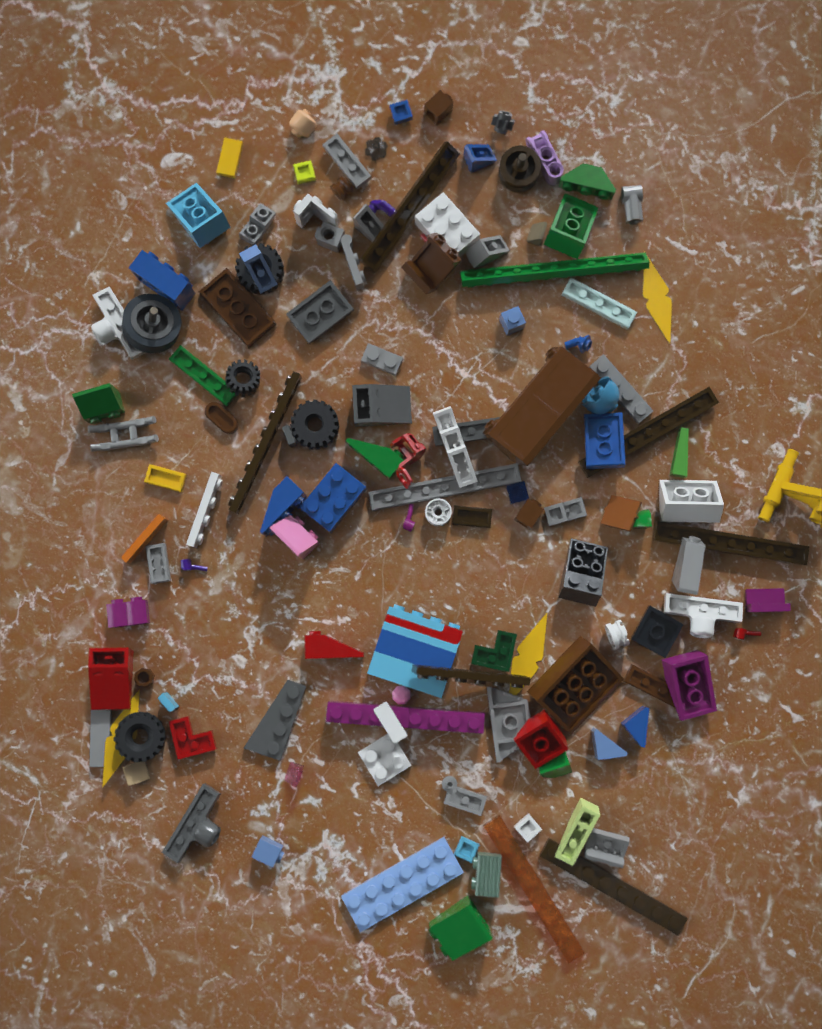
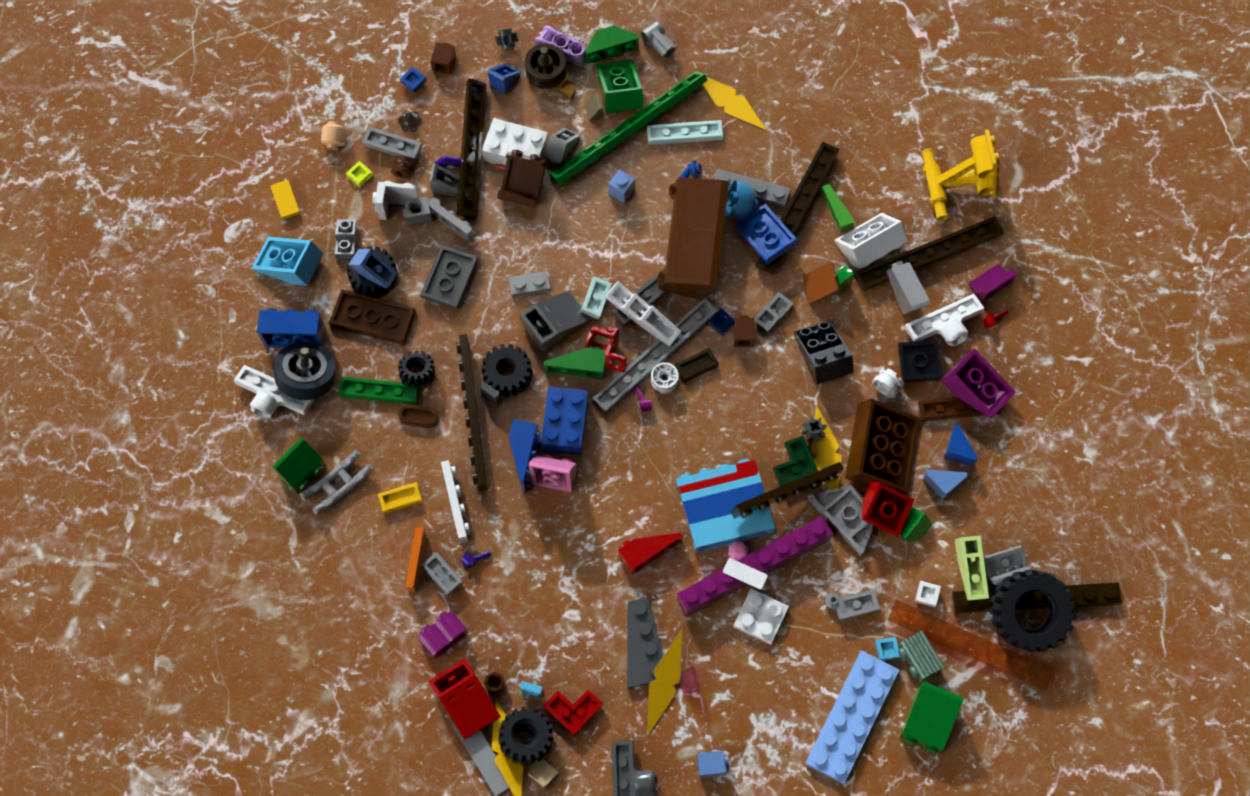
camera: 30 degrees left, 15 degrees down
(279, 758) = (667, 675): none -> yellow sticker
(426, 406) = (595, 297): none -> light aqua plate
(526, 199) = (566, 88): none -> pearl gold tile
(535, 636) = (814, 423): none -> dark grey gear
(598, 925) = (1060, 610): none -> black tyre

